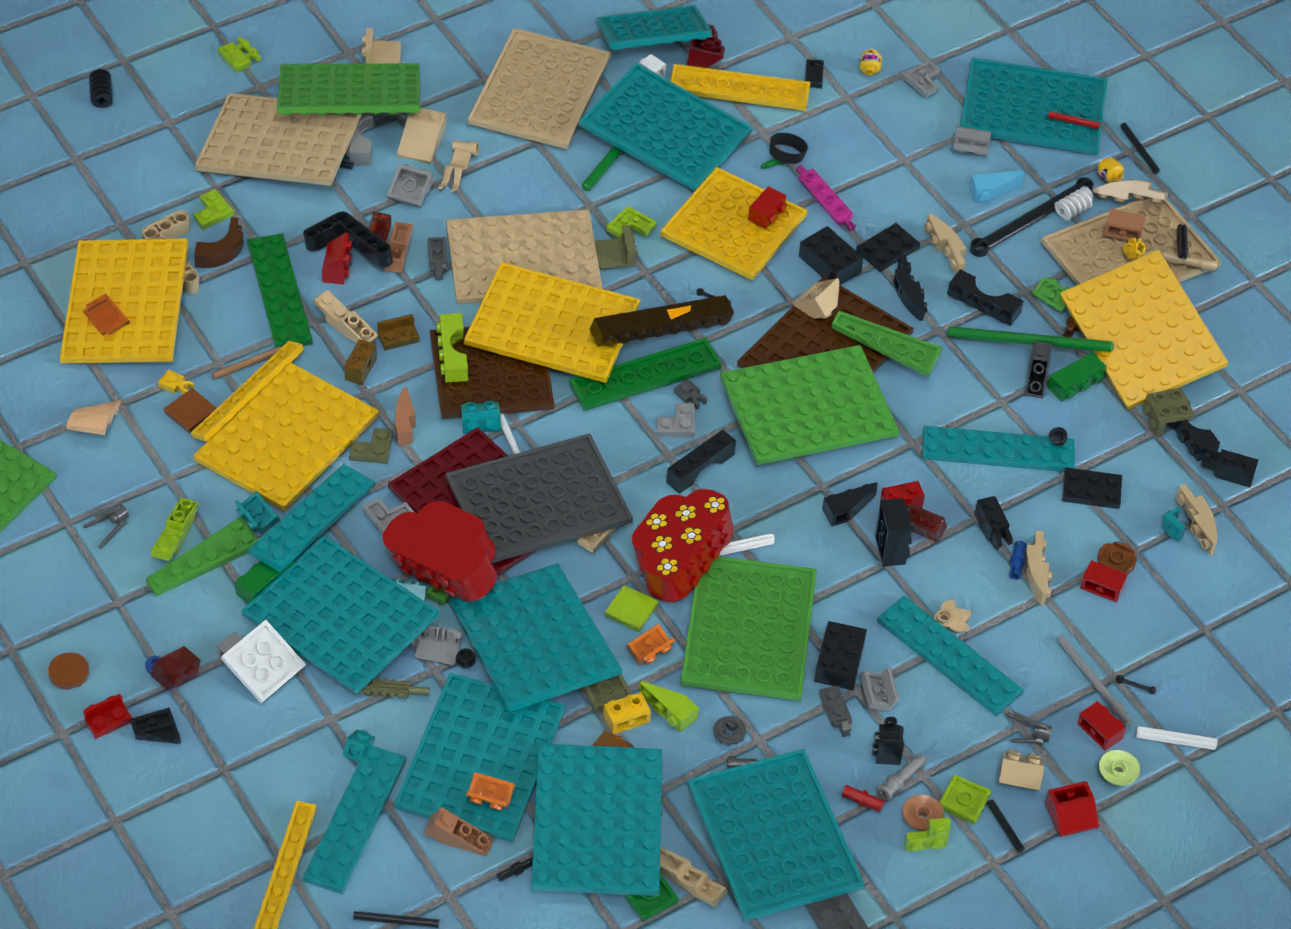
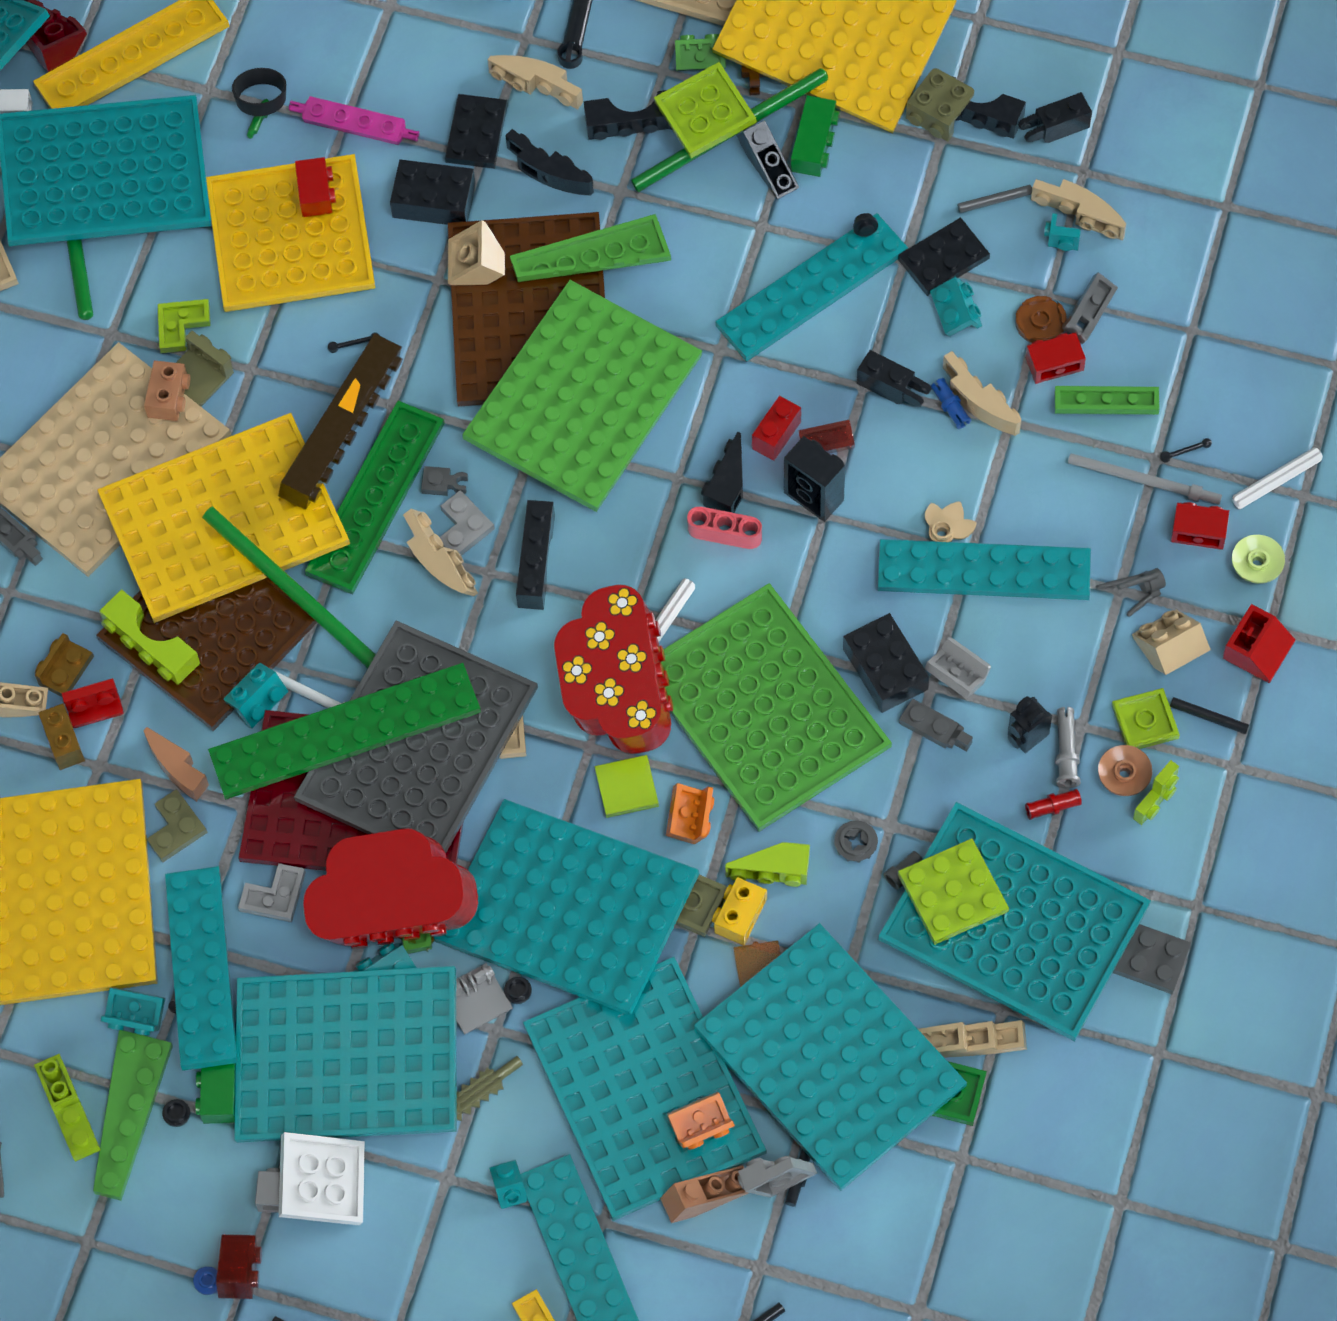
camera: 35 degrees left, 15 degrees up
(226, 576) = (176, 1113): none -> black plate
(393, 358) = (93, 703): none -> red bracket
(501, 850) = (774, 1177): none -> light grey plate
(505, 462) = (344, 731): none -> green plate
(550, 373) = (289, 586): none -> green piece
(586, 244) = (166, 390): none -> nougat brick
(645, 424) = (438, 560): none -> tan slope
(753, 789) = (953, 891): none -> lime plate
(820, 525) = (716, 518): none -> coral beam
(1023, 316) = (705, 110): none -> lime plate
(1072, 516) = (956, 306): none -> teal bracket
(1113, 624) = (1106, 400): none -> bright green plate
(1151, 480) = (994, 198): none -> dark grey bar
(1152, 571) = (1090, 307): none -> dark grey plate

